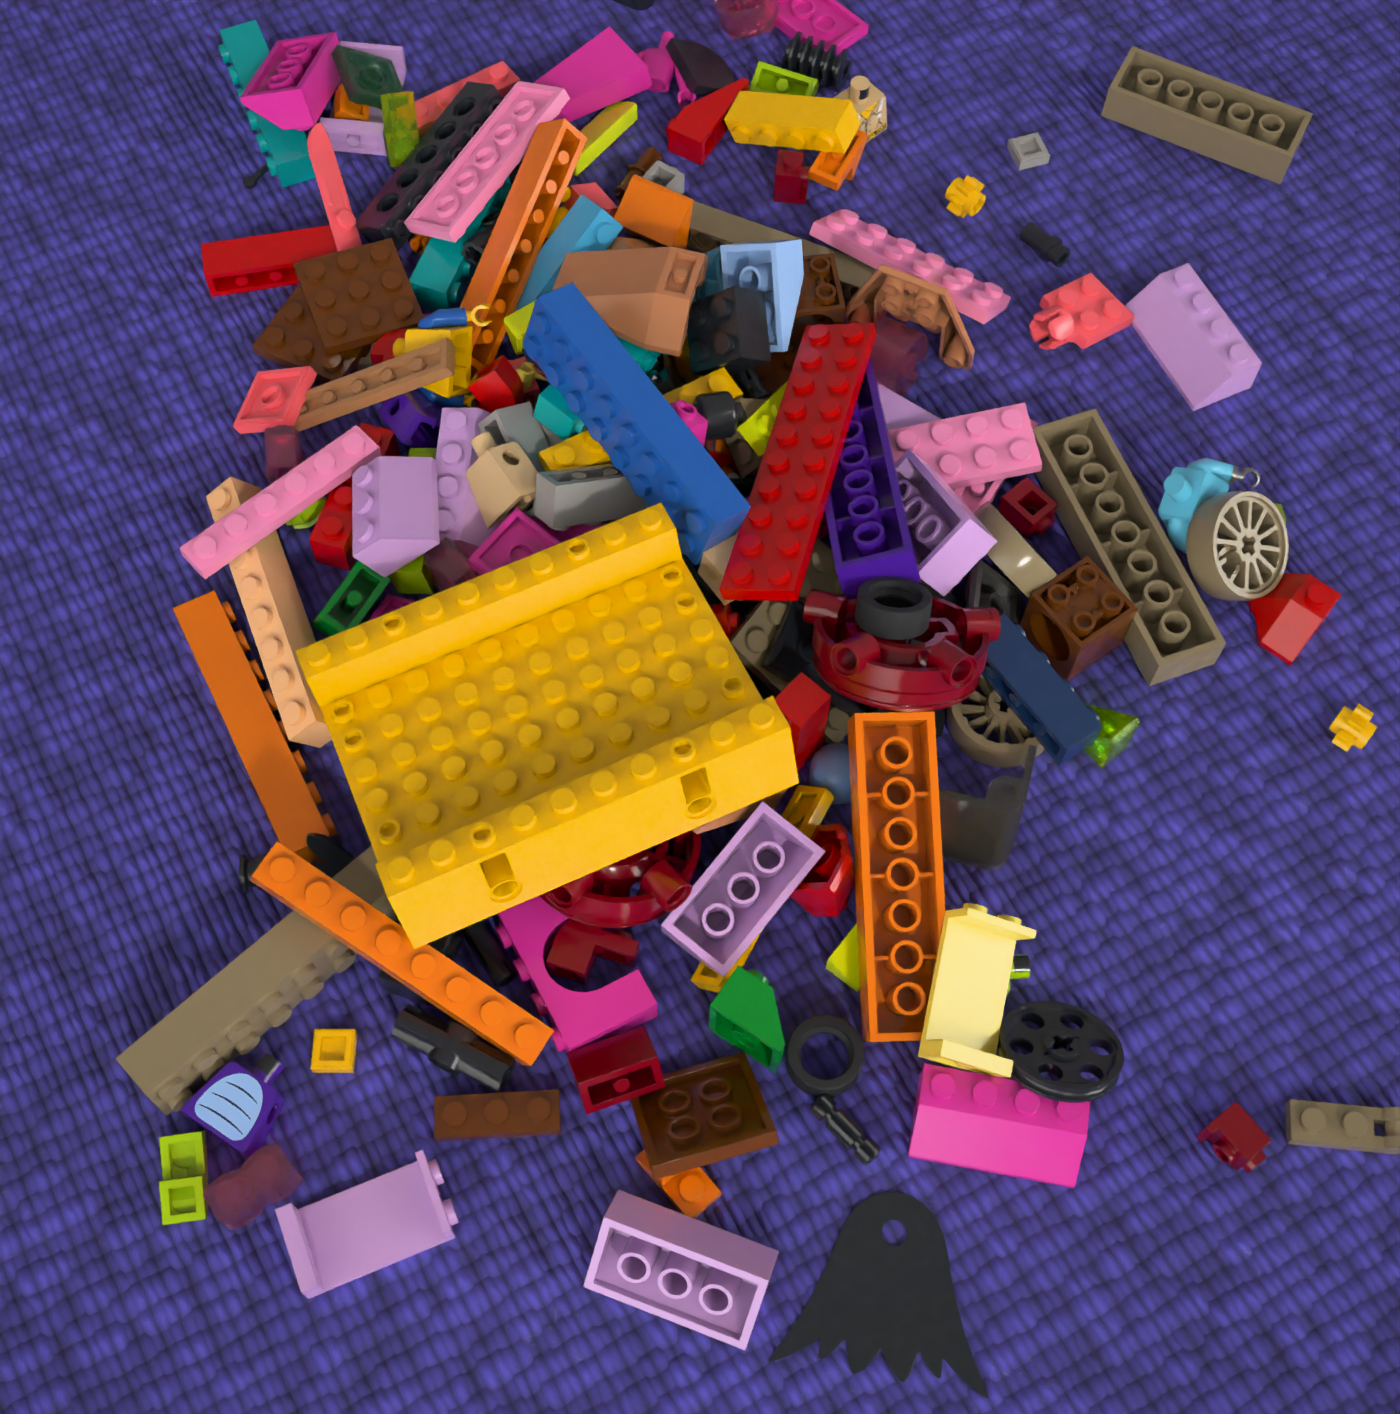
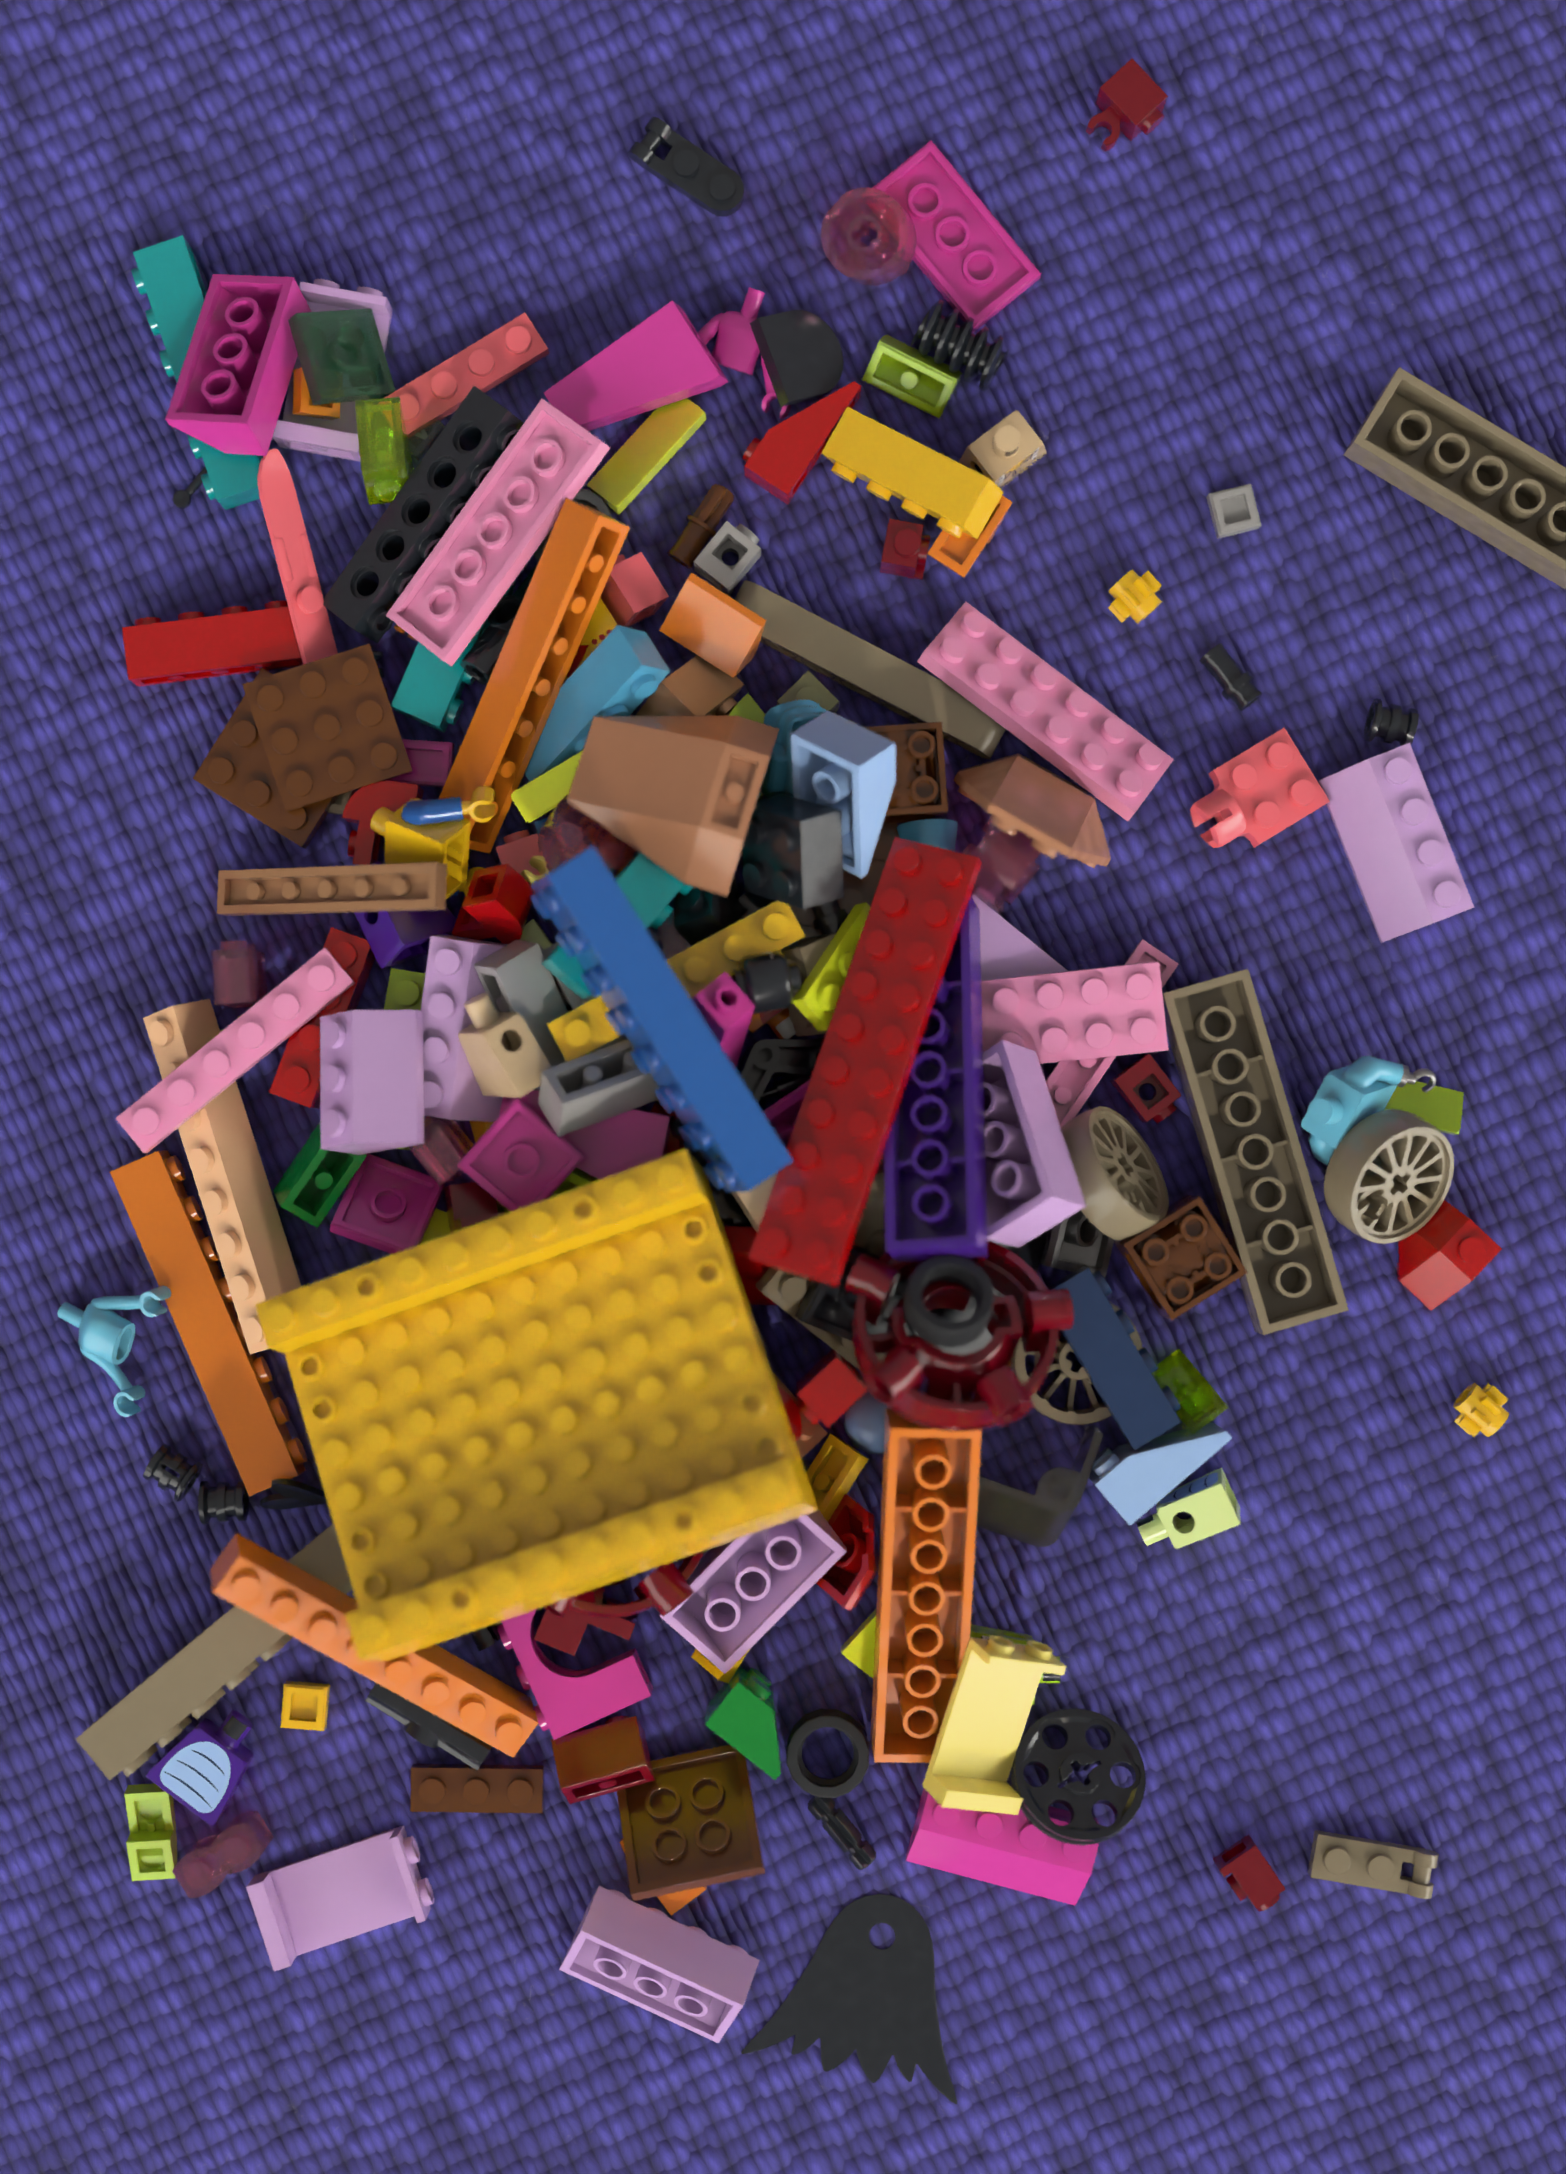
camera: 10 degrees right, 25 degrees up
(168, 740) = (109, 1337): none -> medium azure piece
(217, 850) = (157, 1470): none -> black bush
(274, 399) = (223, 870): coral tile -> none
(1079, 780) = (1143, 1476): none -> light blue slope
(1125, 818) = (1205, 1499): none -> yellowish green torso
(1165, 261) = (1390, 723): none -> black bush

